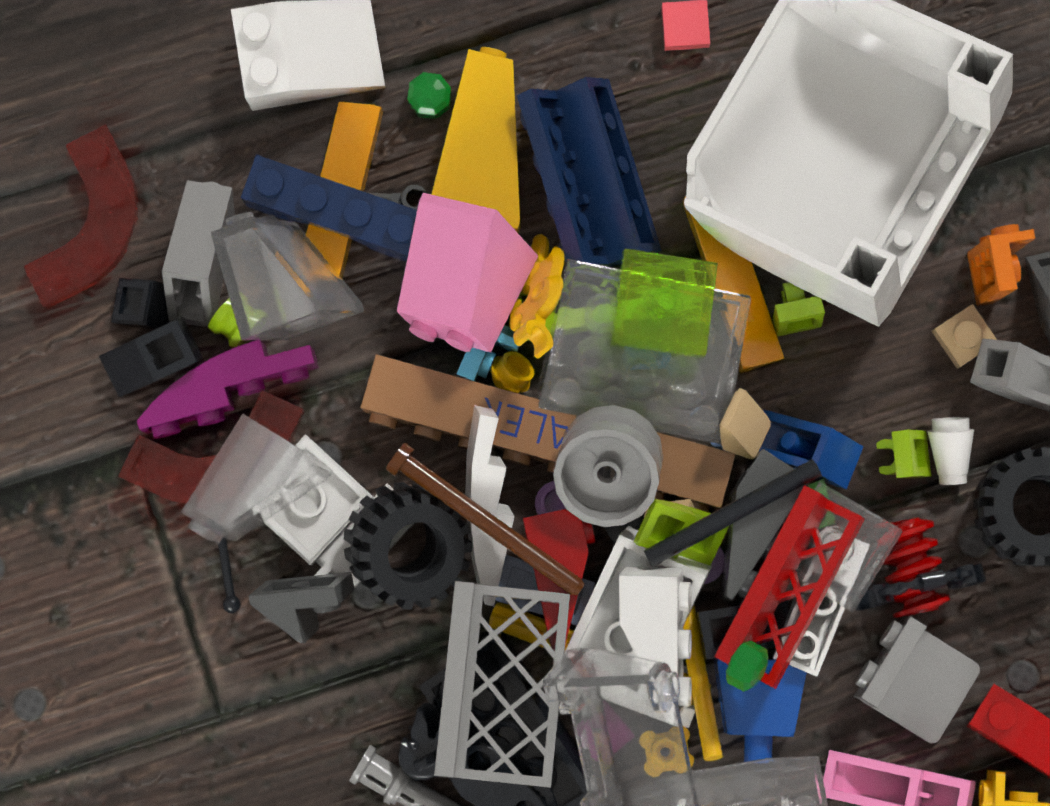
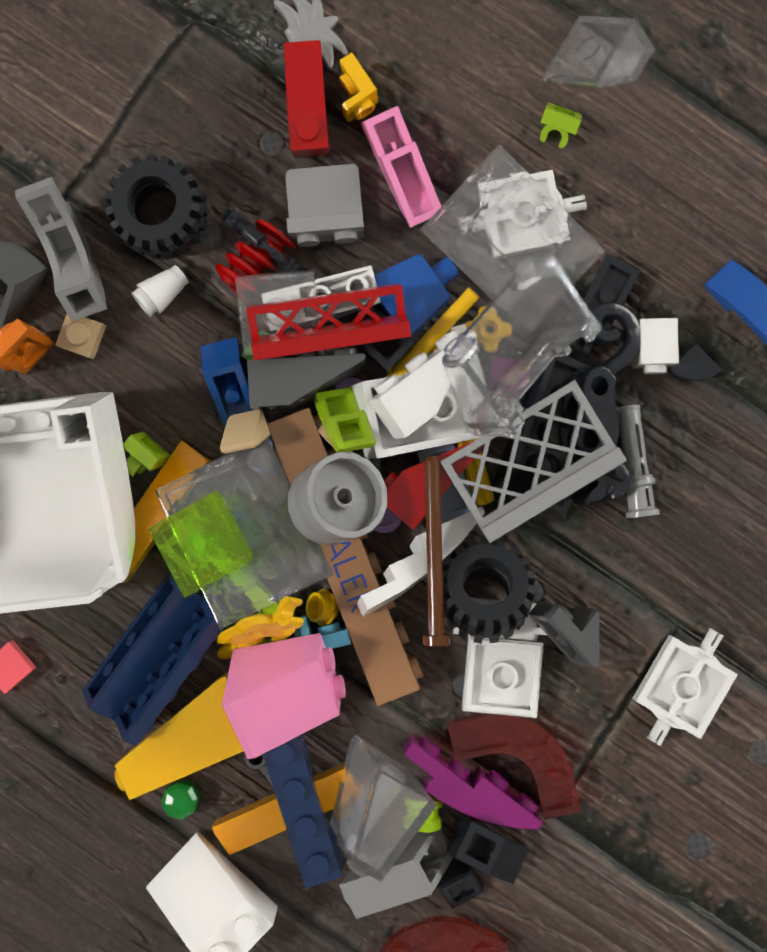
camera: 135 degrees left, 5 degrees up
(158, 674) = (684, 686): none -> white plate
(231, 603) = (561, 718): black hinge -> none
(250, 482) = (524, 727): clear slope -> none
(732, 512) = (307, 394): black bar -> none
(747, 666) = (401, 310): green tile -> none
(910, 454) = (183, 313): lime tile -> none

